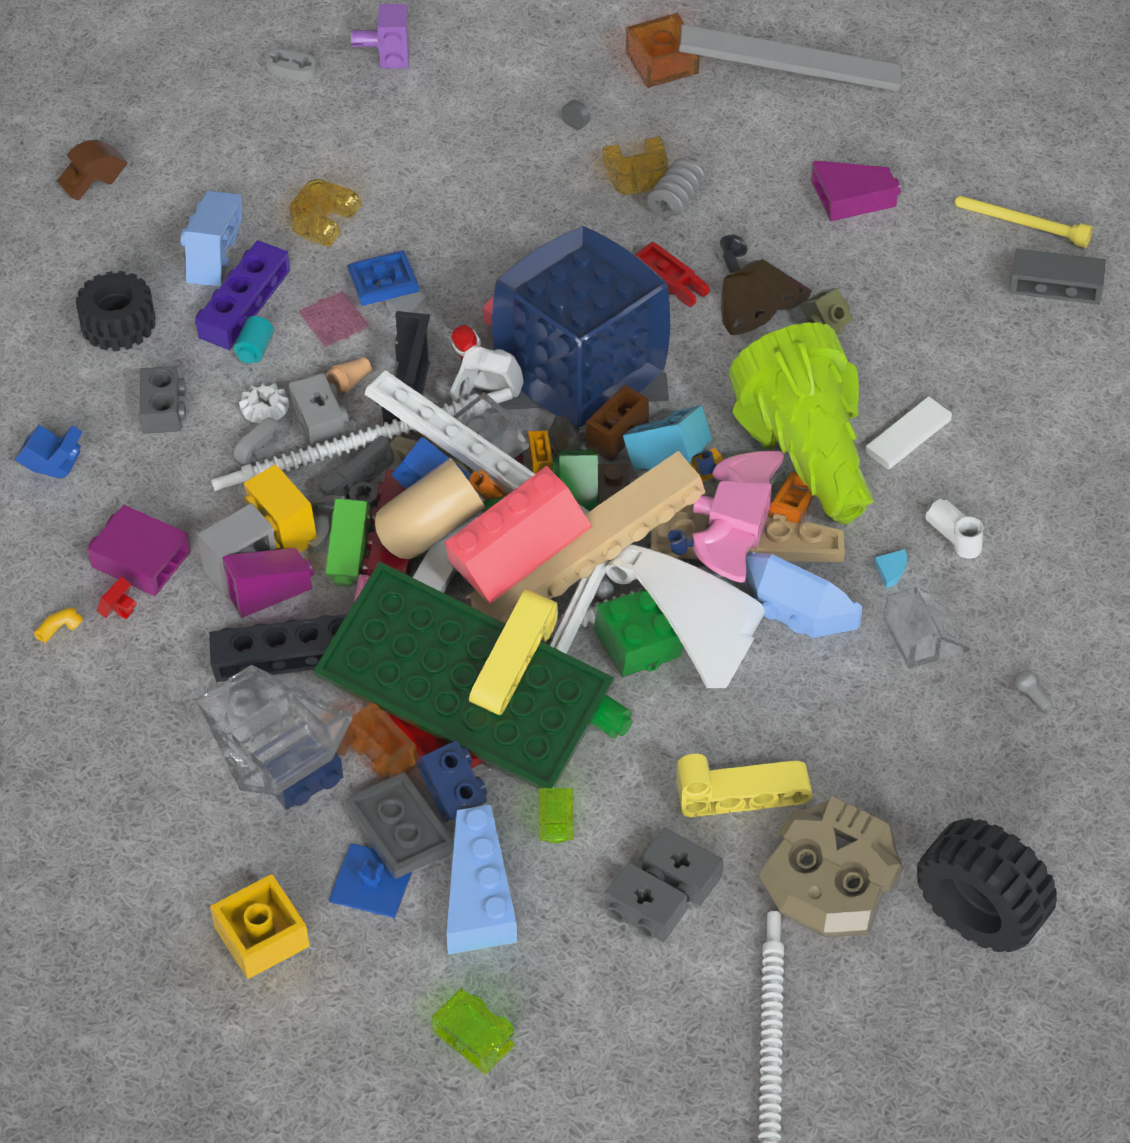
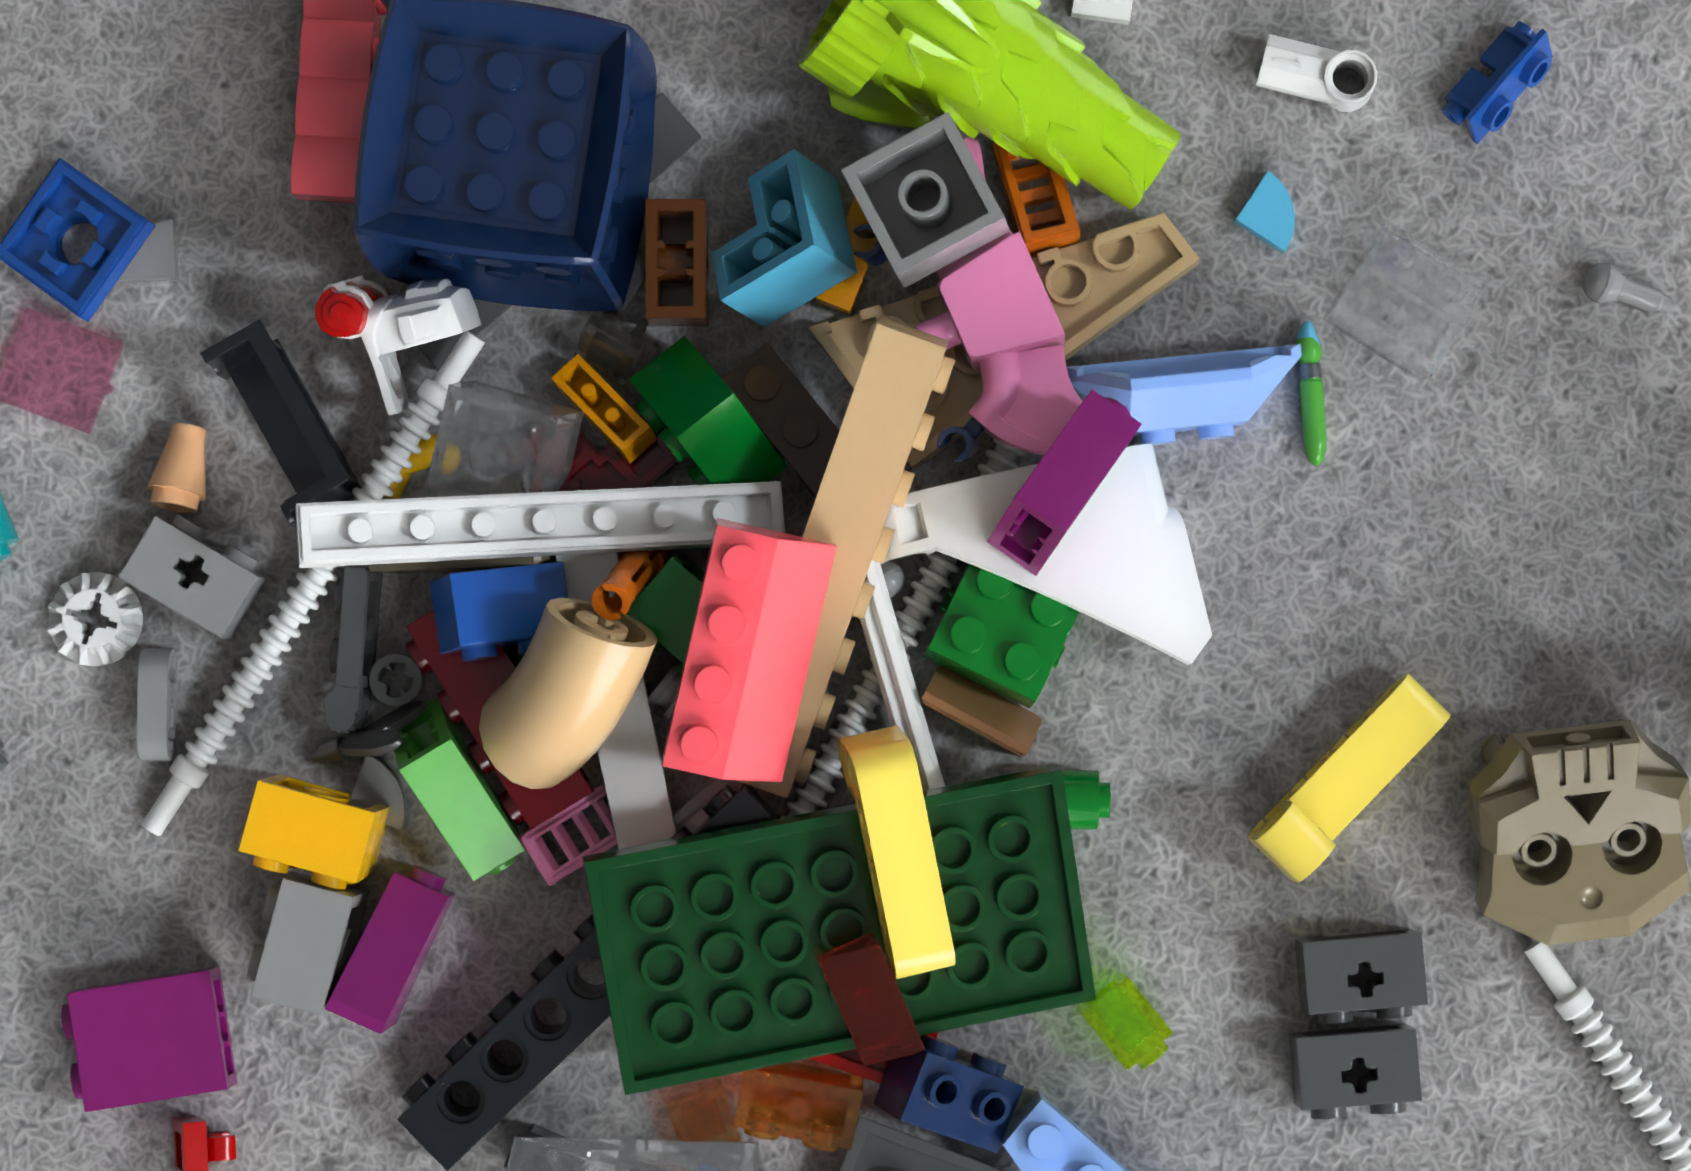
camera: 40 degrees left, 35 degrees up
(450, 706) = (870, 1001): none -> clear red slope
(595, 655) = (981, 711): none -> medium nougat slope
(707, 565) = (1064, 481): none -> magenta slope
(739, 442) = (926, 199): none -> light grey brick
(865, 627) = (1311, 394): none -> bright green piece
(1039, 582) = (1518, 61): none -> blue hinge

